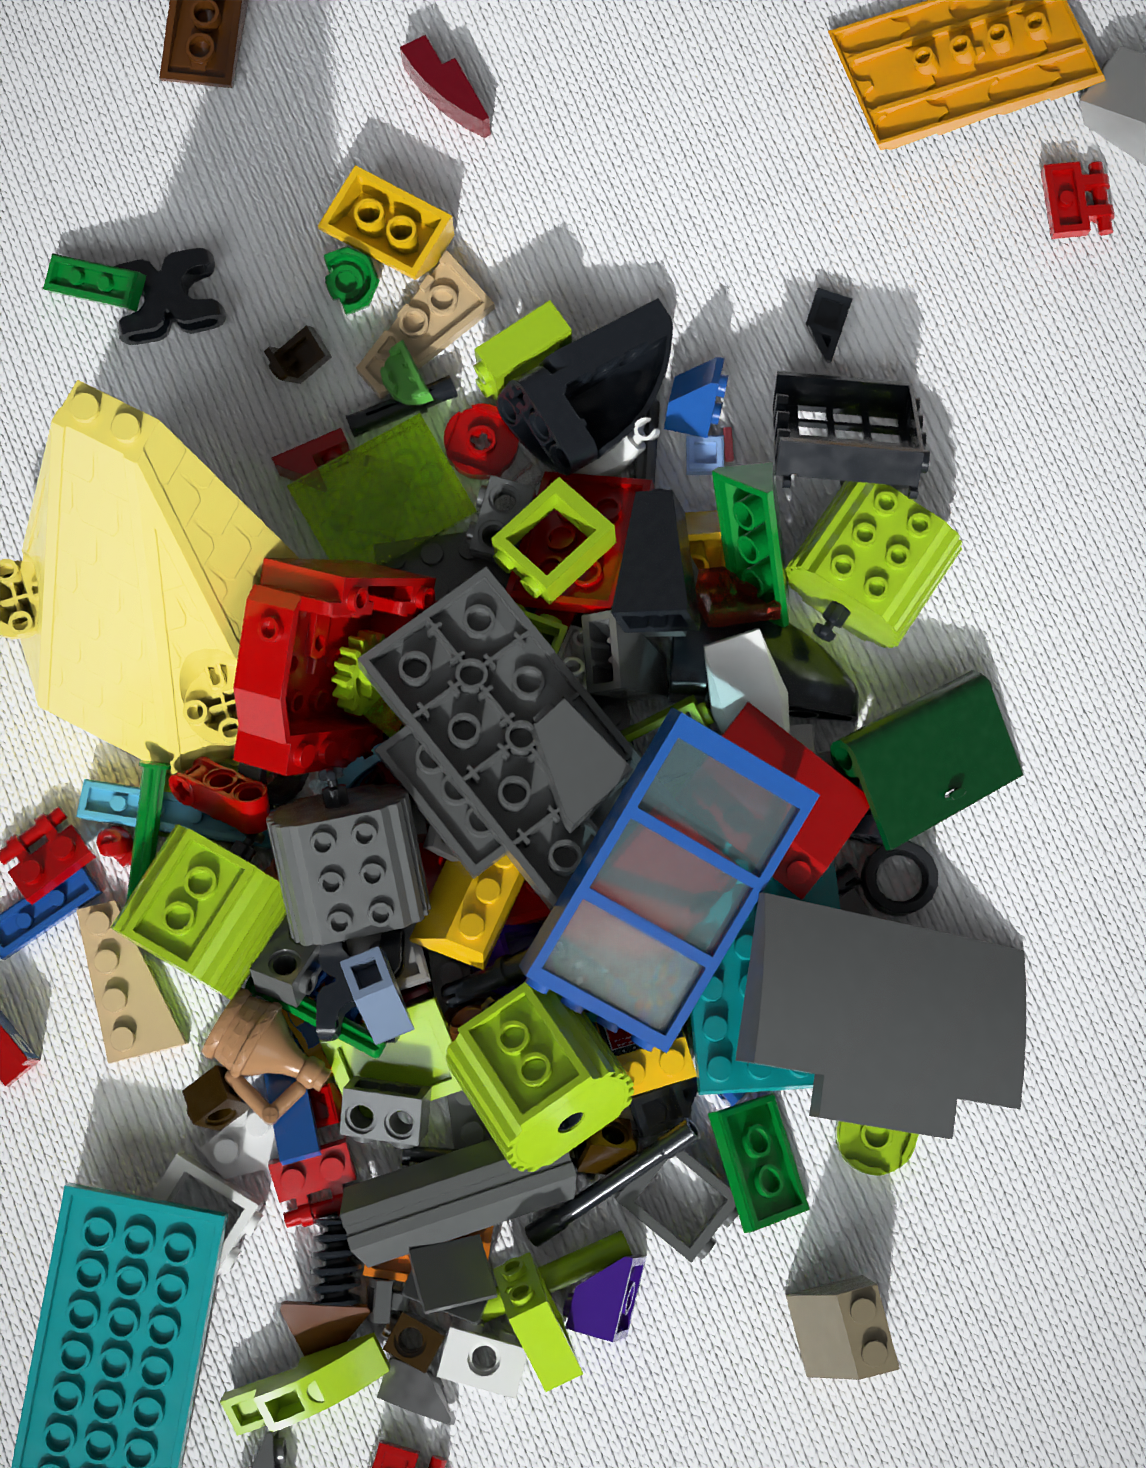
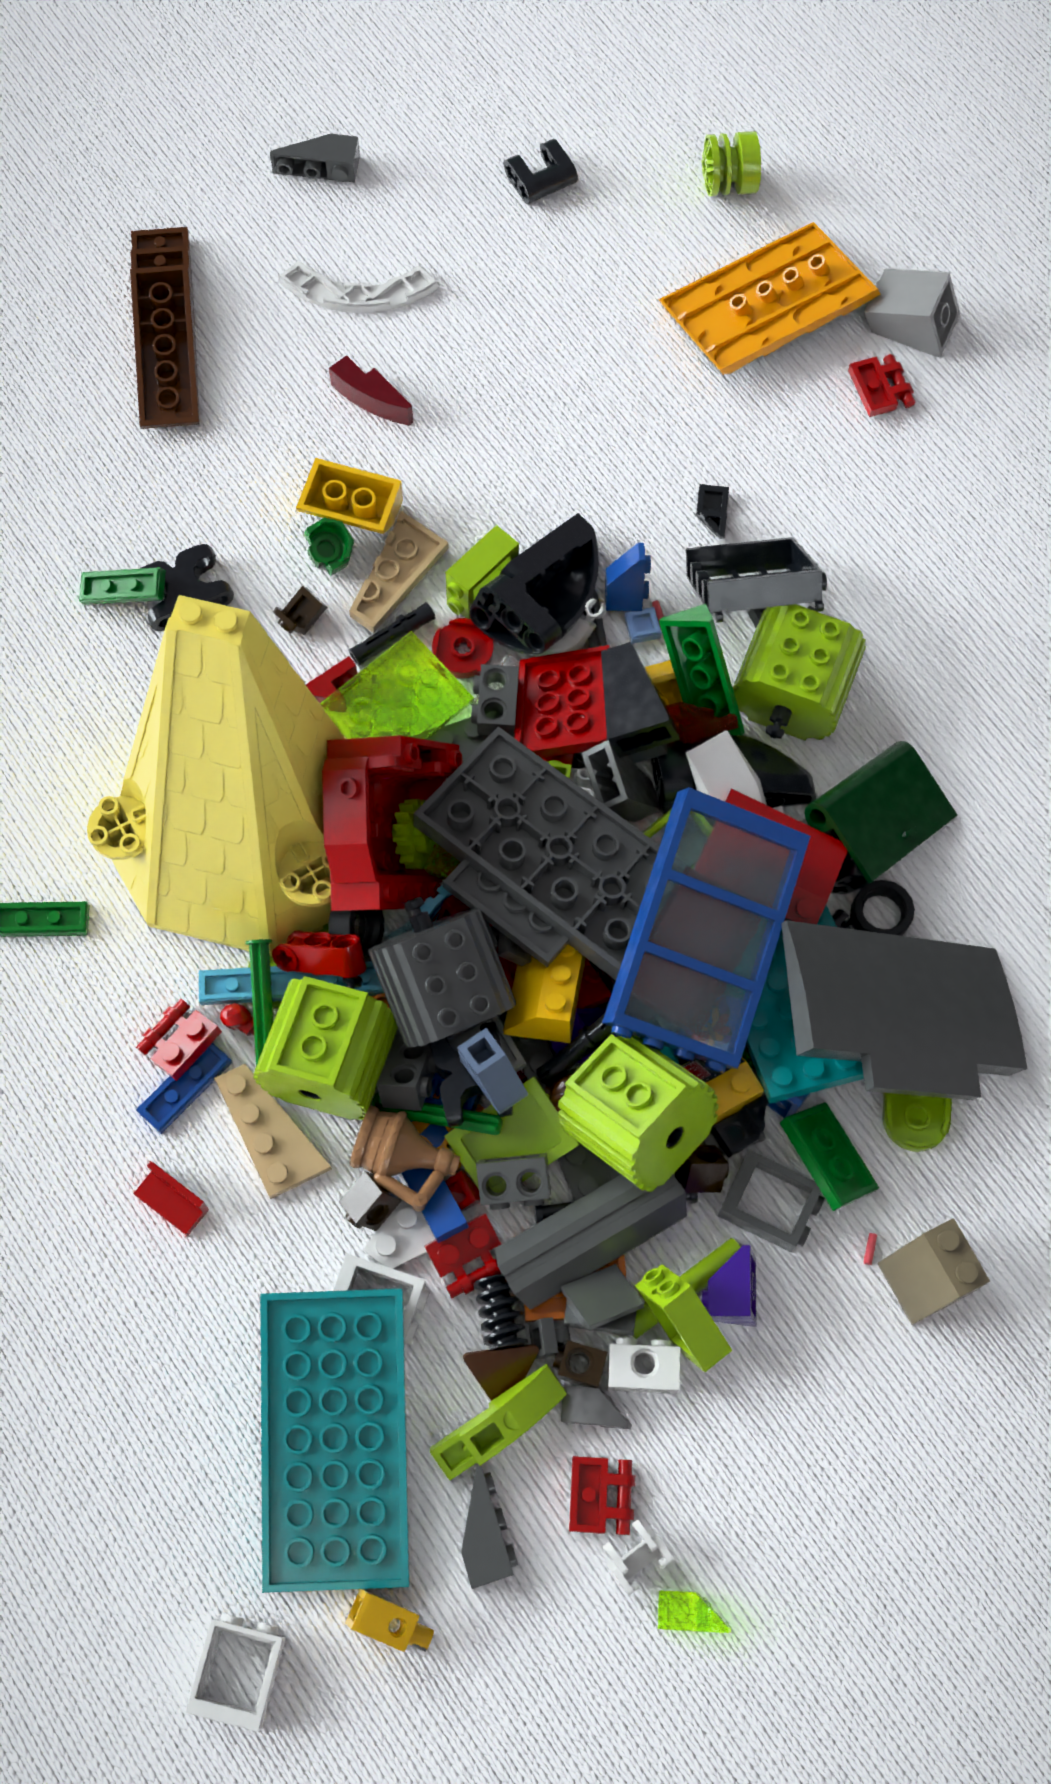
camera: 15 degrees left, 10 degrees down
(403, 378) = (391, 609): bright green plate -> none
(577, 511) = (555, 674): lime window -> none
(577, 762) = (610, 854): dark grey slope -> none
(663, 1148) = (677, 1238): black piece -> none
(781, 1277) = (870, 1248): none -> coral piece

